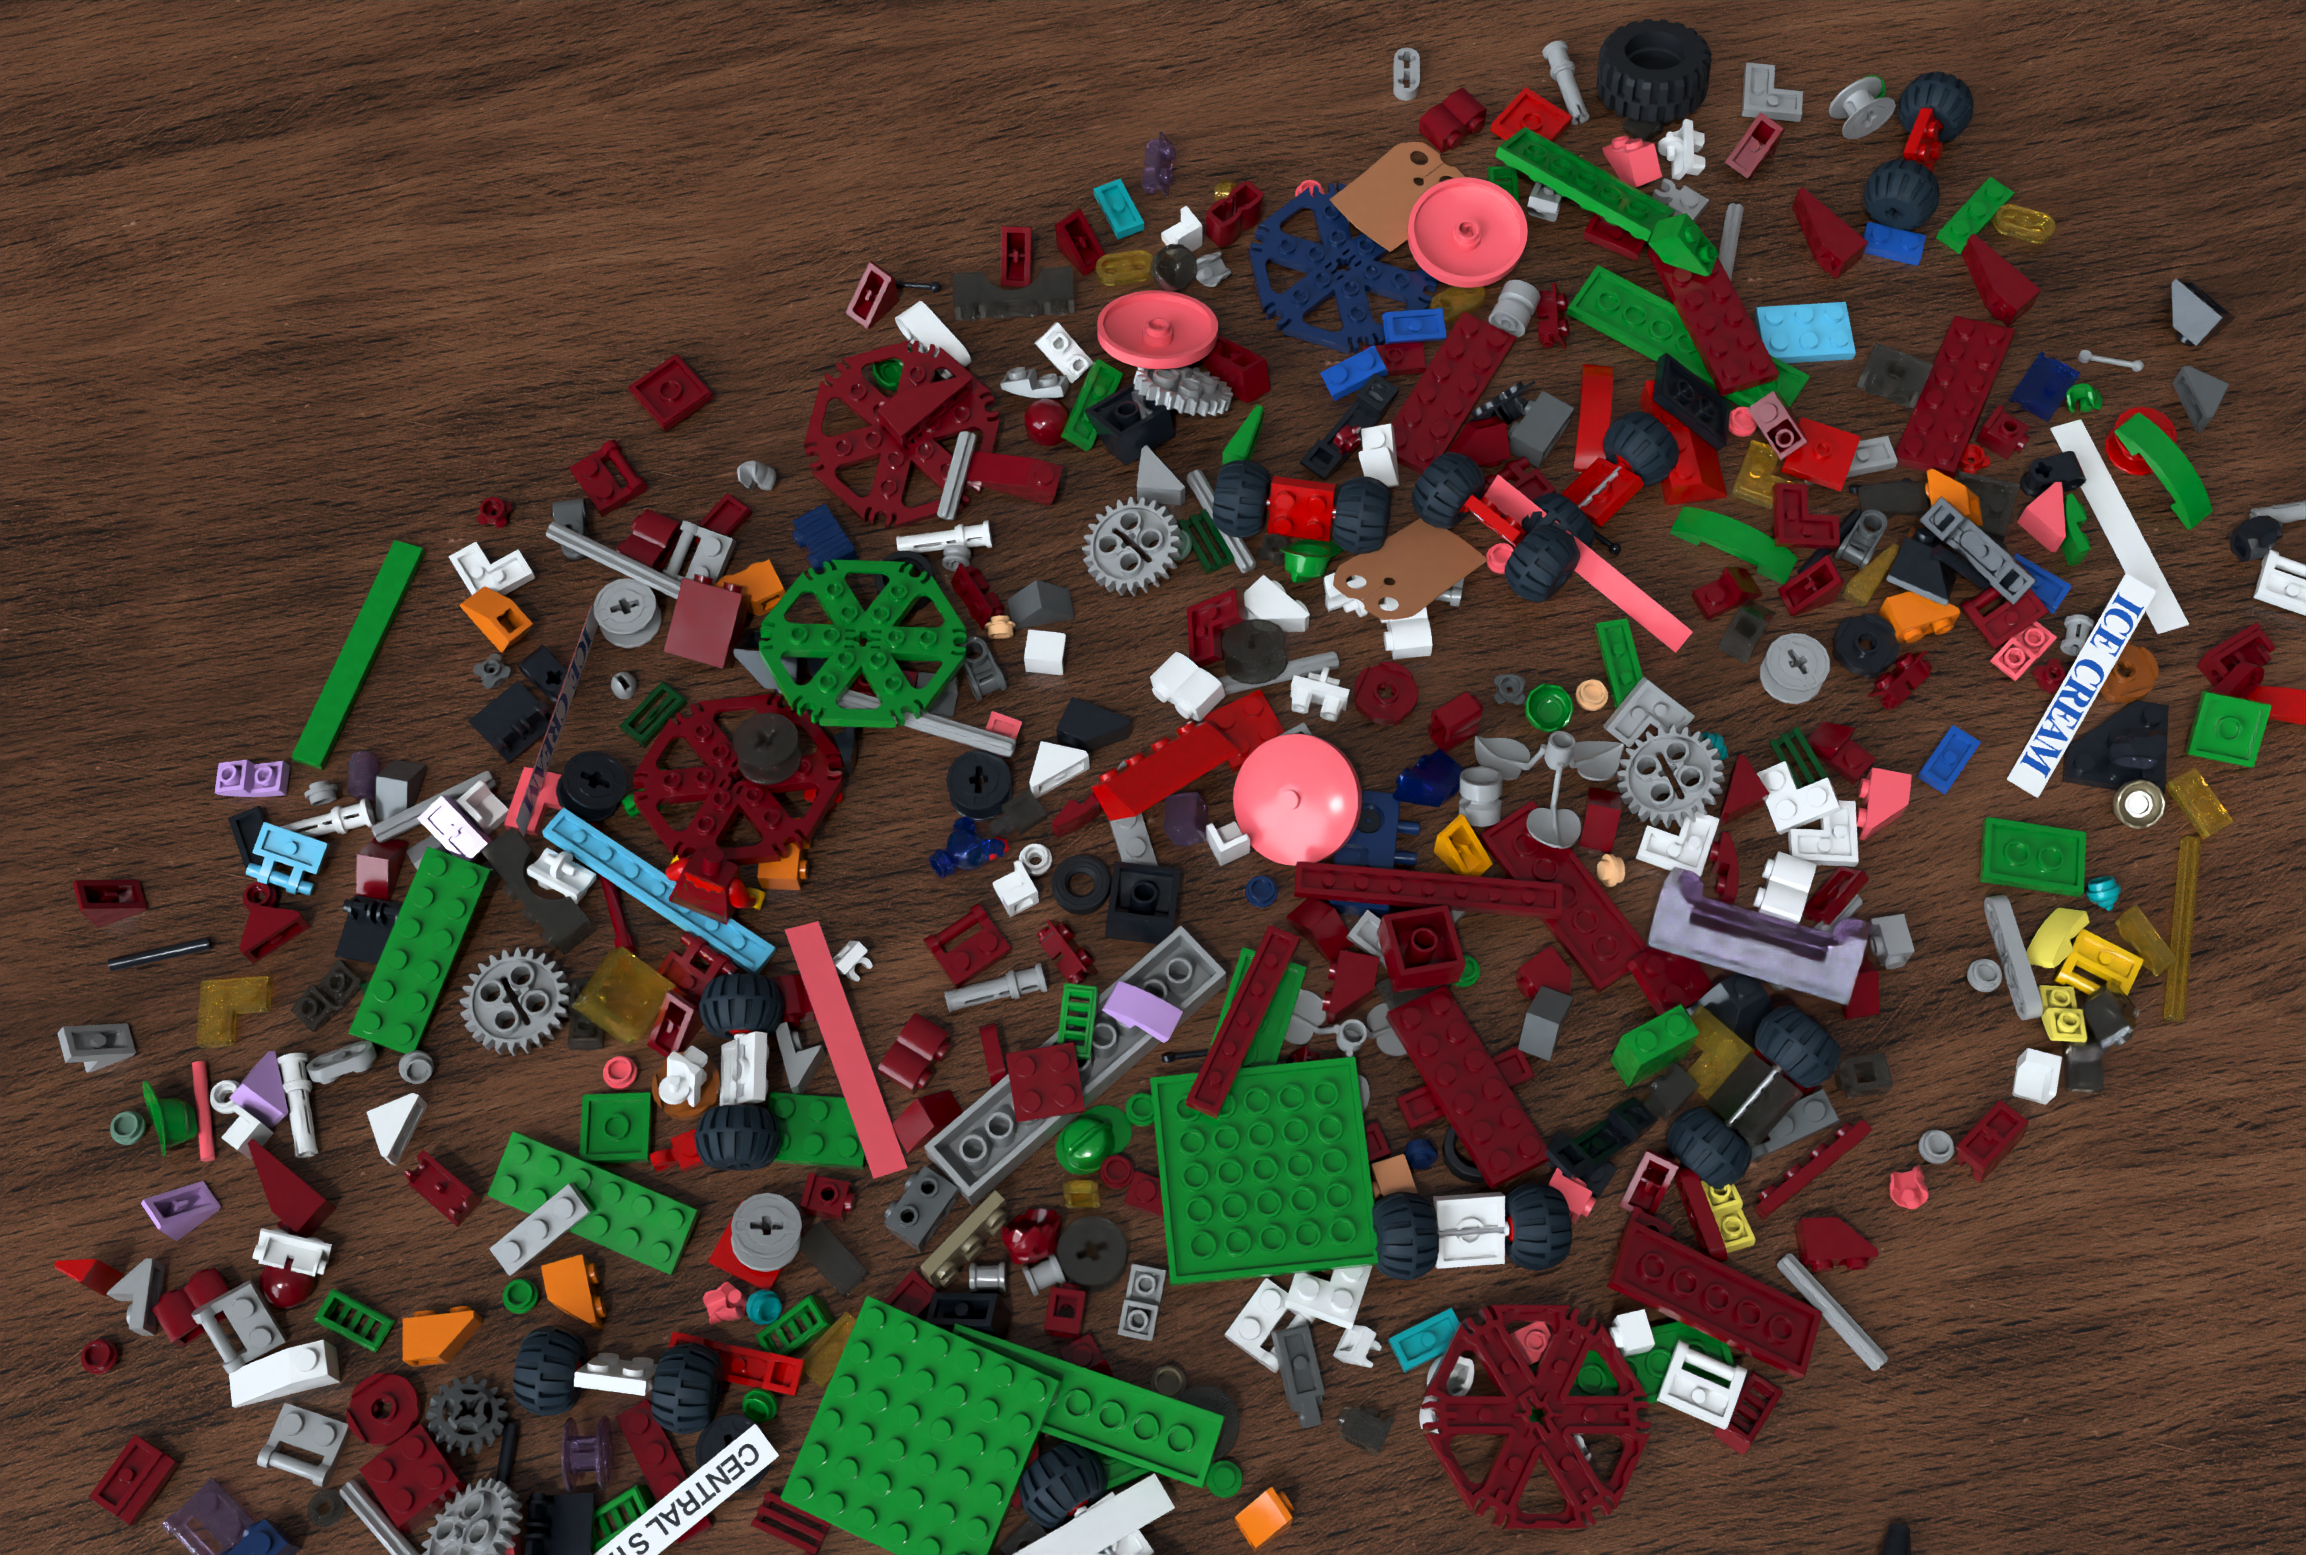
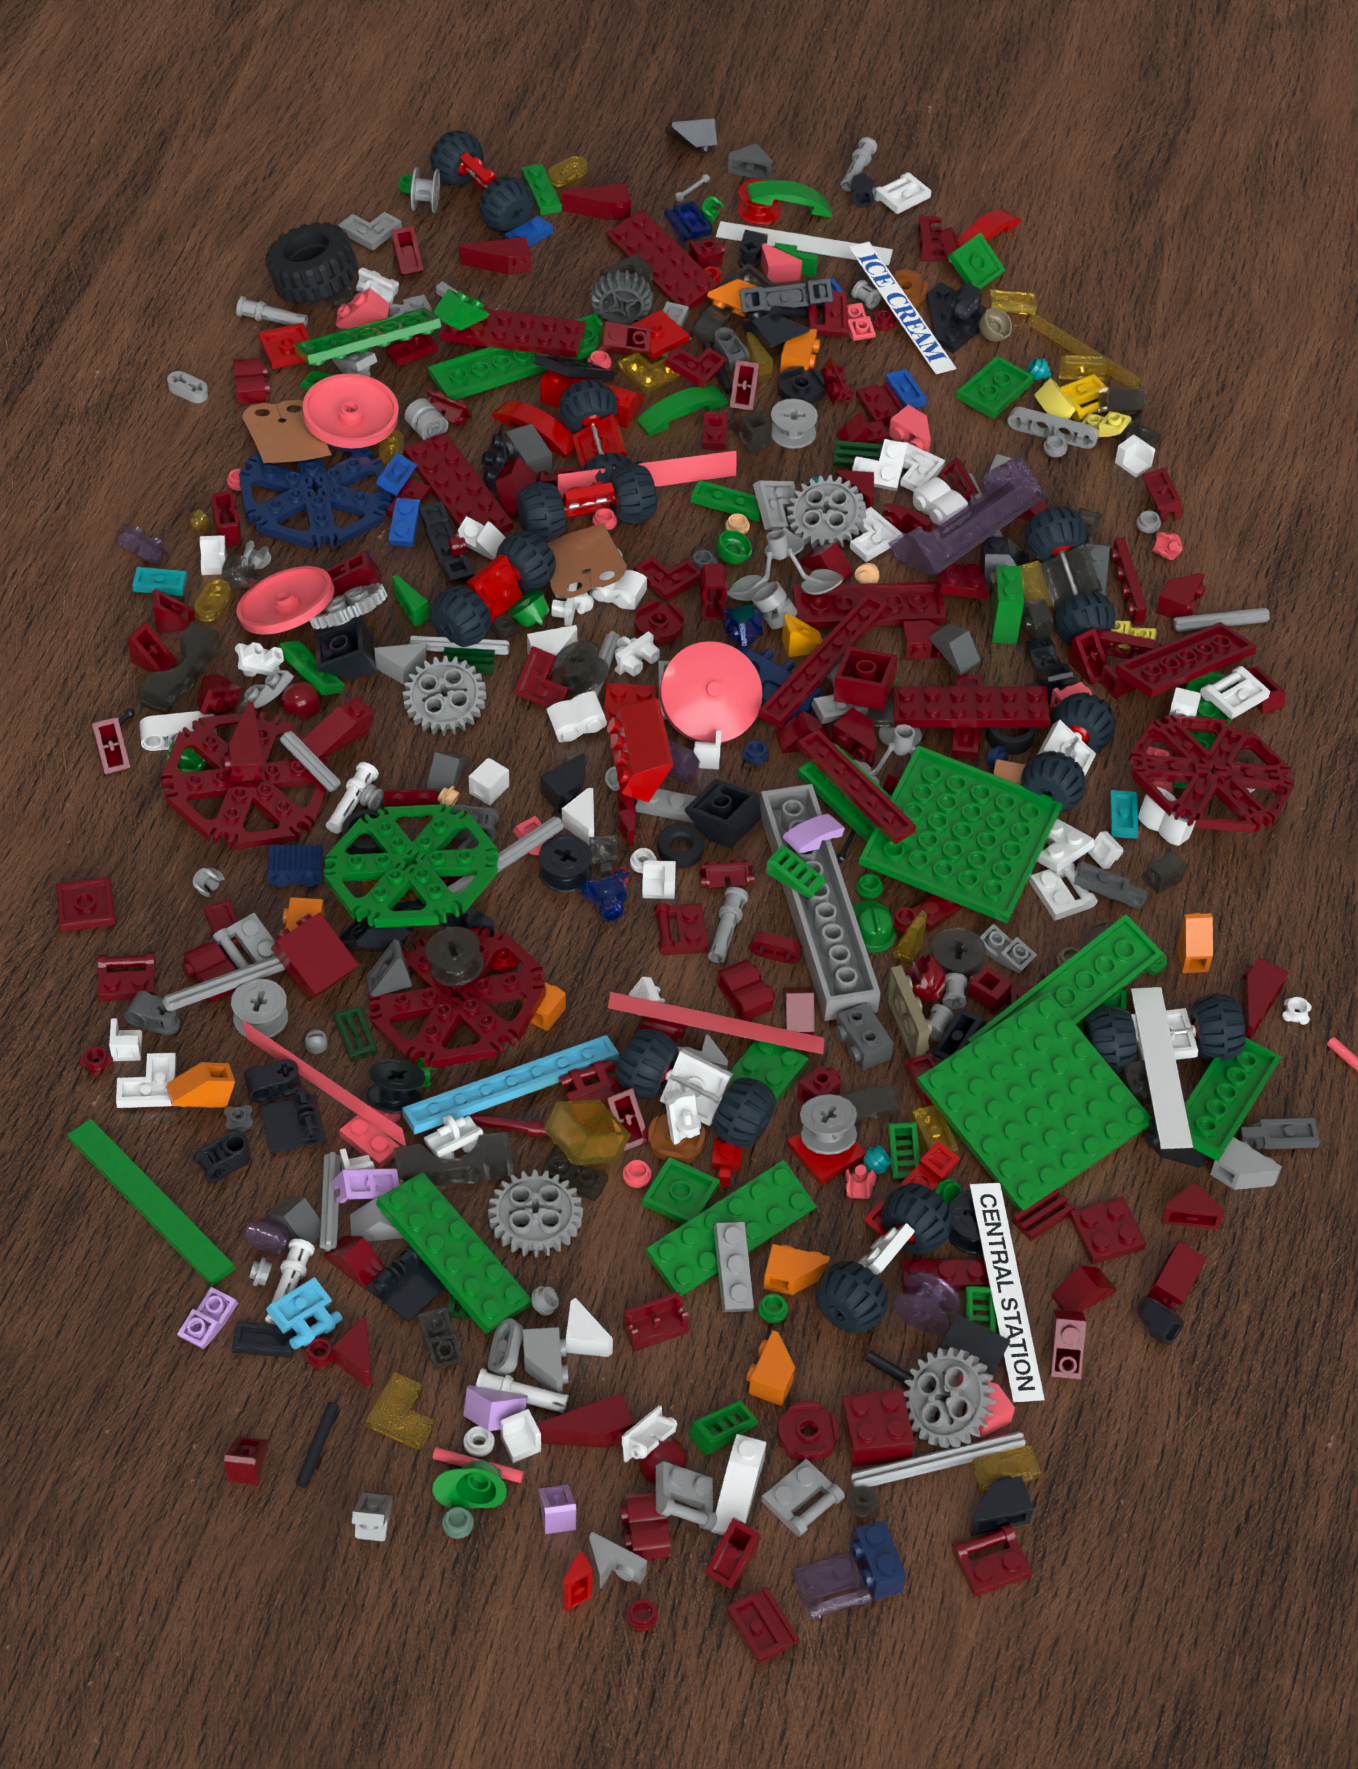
camera: 65 degrees left, 15 degrees down
(196, 1409) = (733, 1553): none -> dark red slope
(344, 1106) = (543, 1357): none -> light grey slope
(433, 682) = (222, 1157): none -> black piece
(466, 1430) = (848, 1372): dark grey gear -> none
(526, 521) = (125, 1044): none -> white panel
(711, 885) = (534, 1040): torso -> none
(729, 704) = (389, 972): none -> dark grey slope
(991, 344) = (217, 694): none -> dark red slope
(1045, 1082) = (829, 909): dark red plate -> none
(1453, 671) = (669, 582): none -> dark red plate
(1806, 332) = (560, 298): medium azure plate -> none
(1847, 387) = (621, 297): none -> dark grey gear
(1907, 744) = (879, 402): none -> dark red plate

